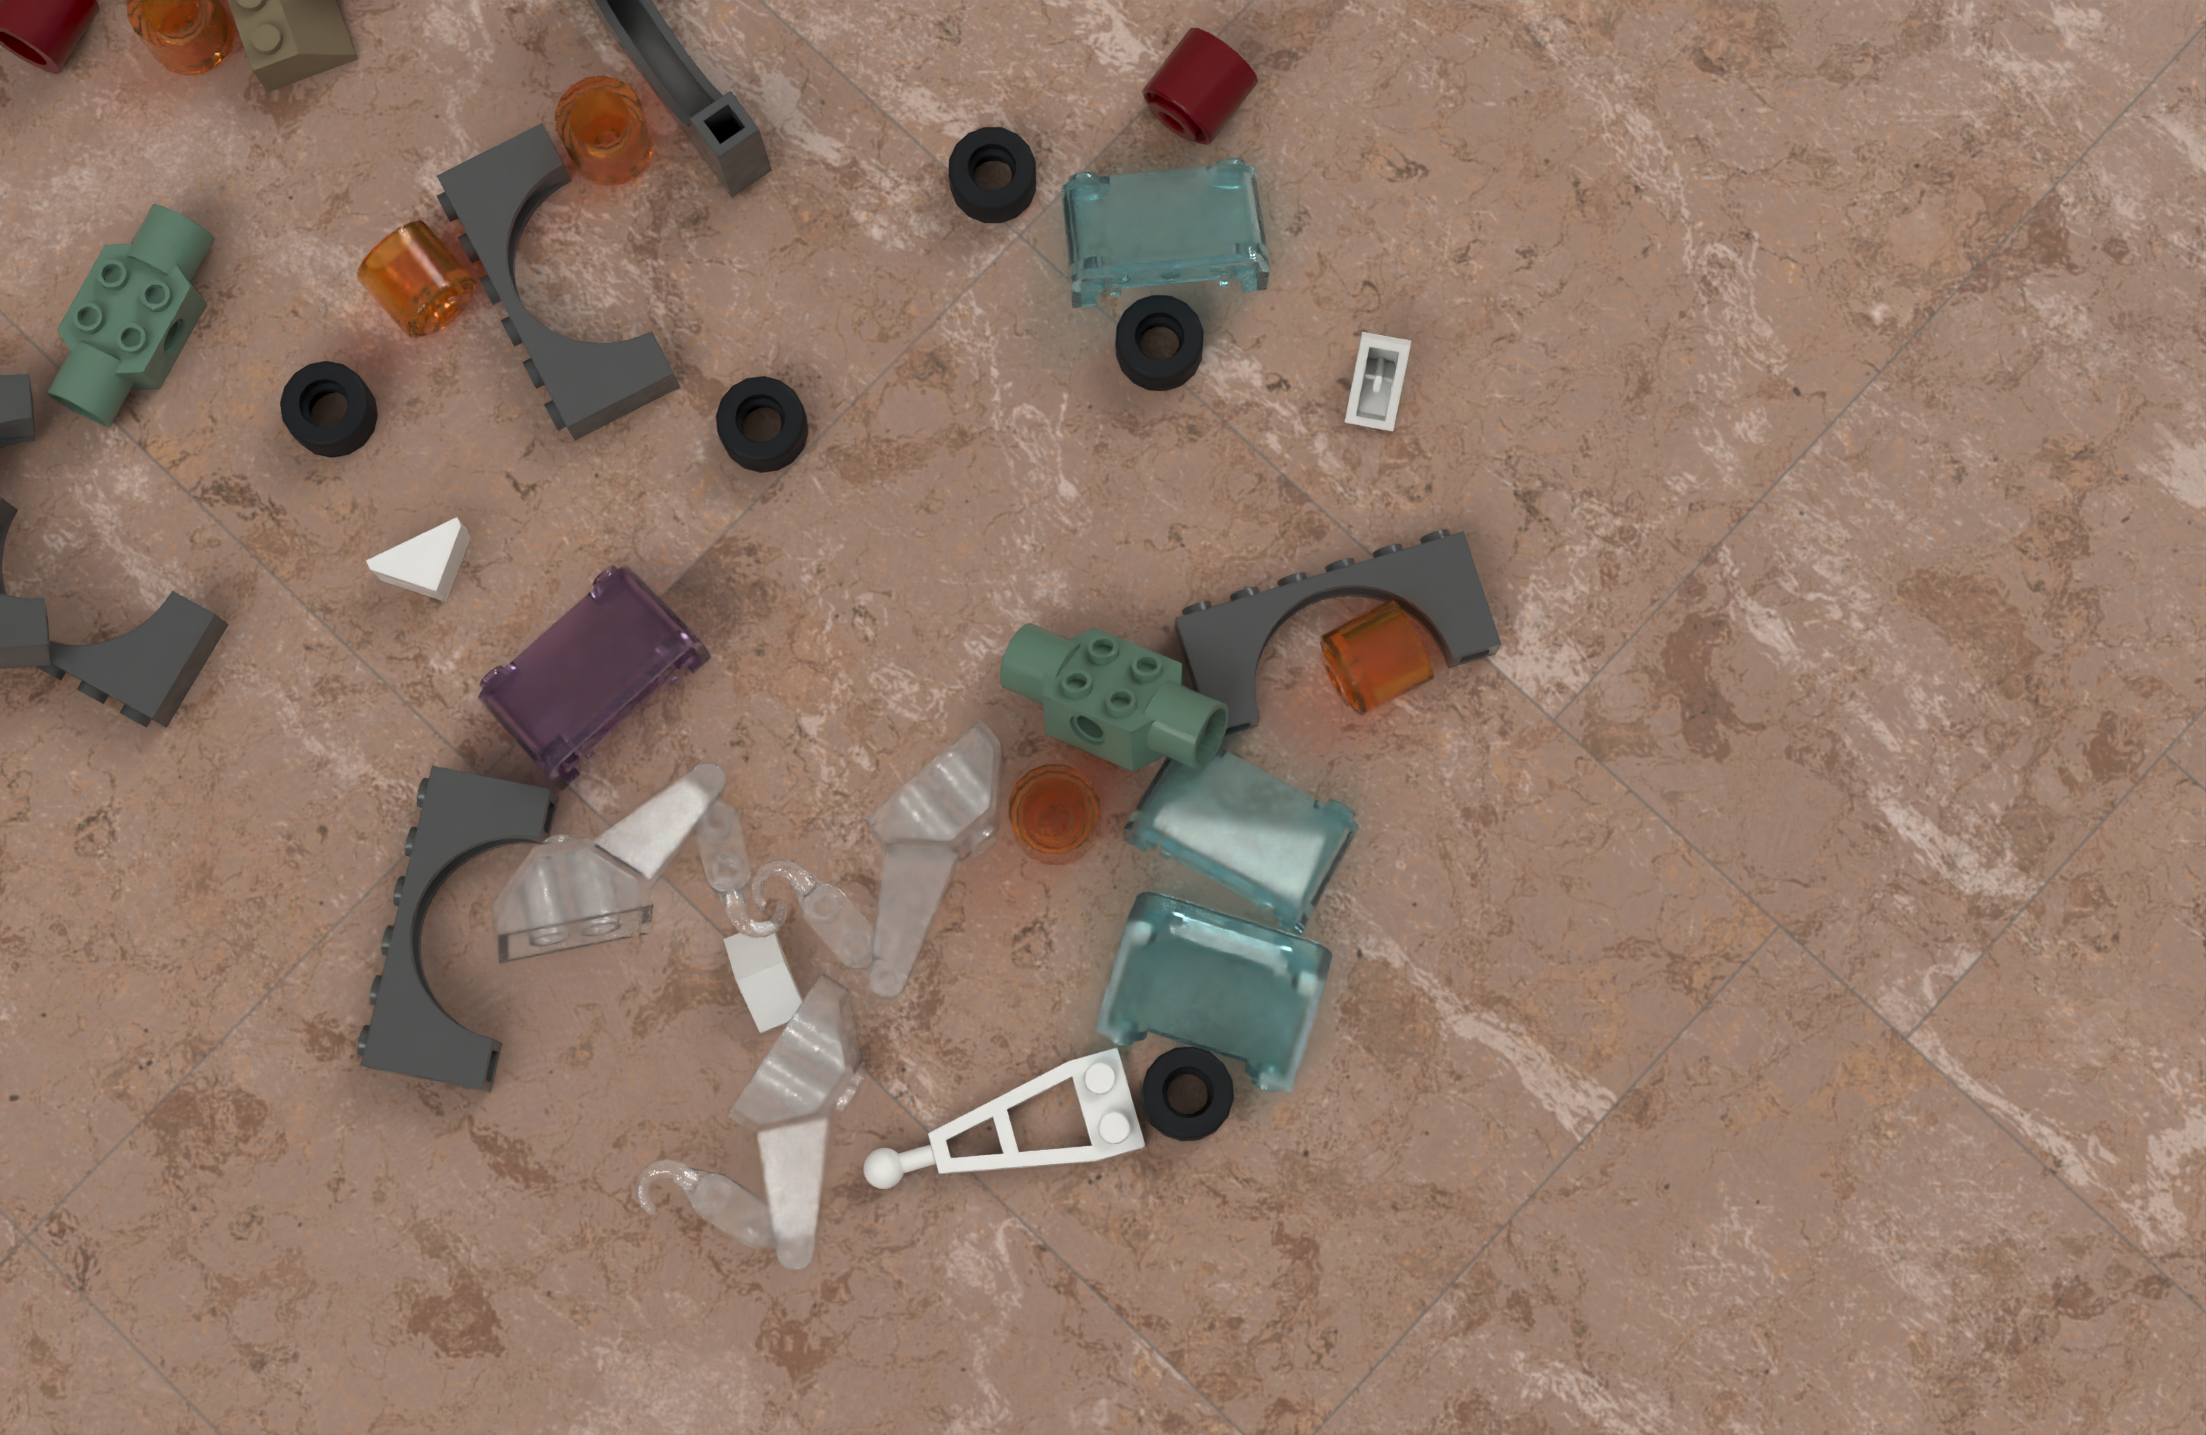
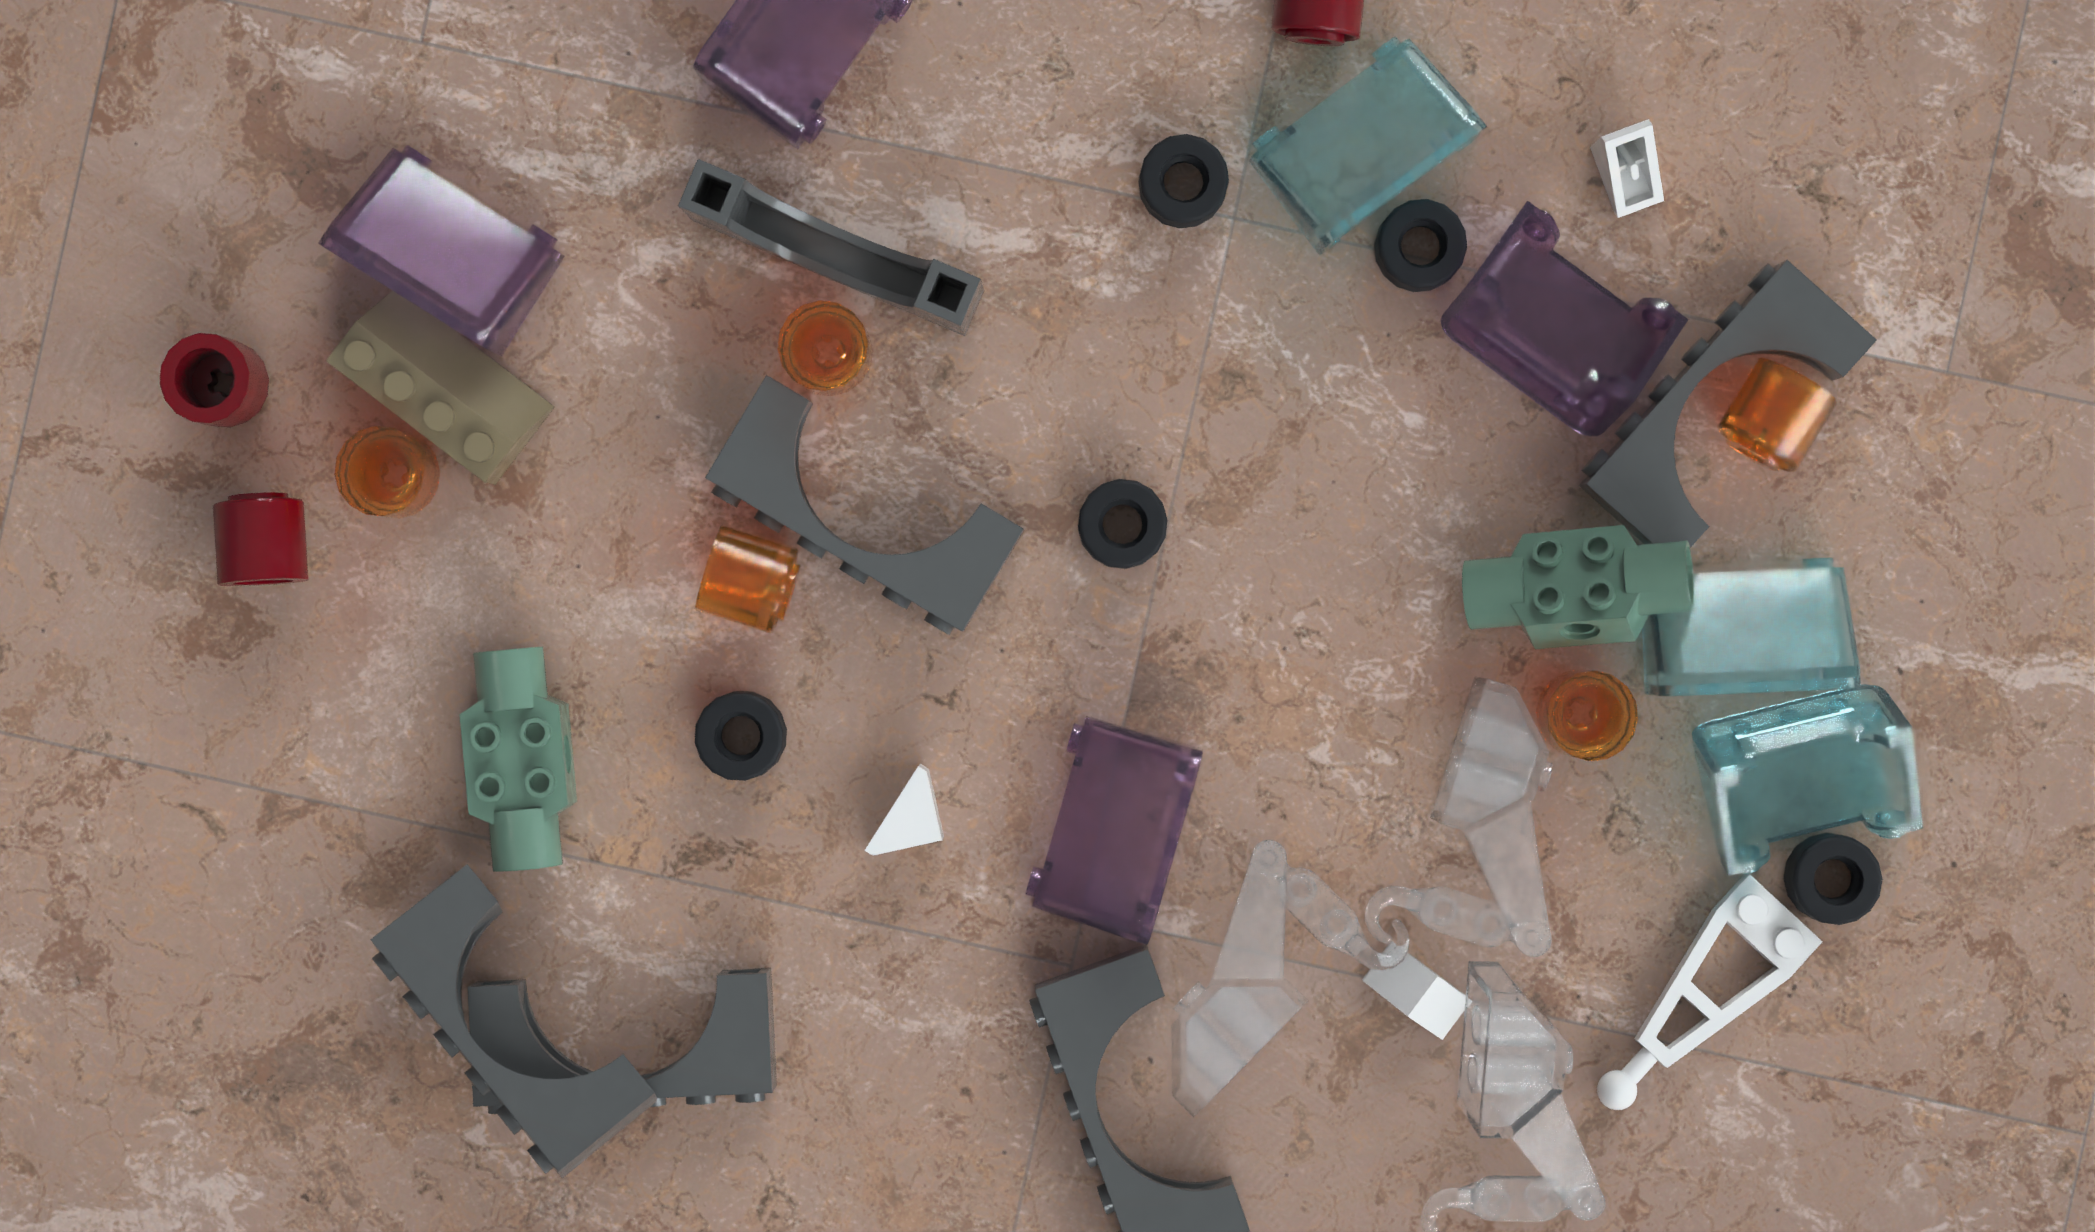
camera: 30 degrees left, 10 degrees up
(1232, 474) = (1558, 328): none -> clear purple windscreen

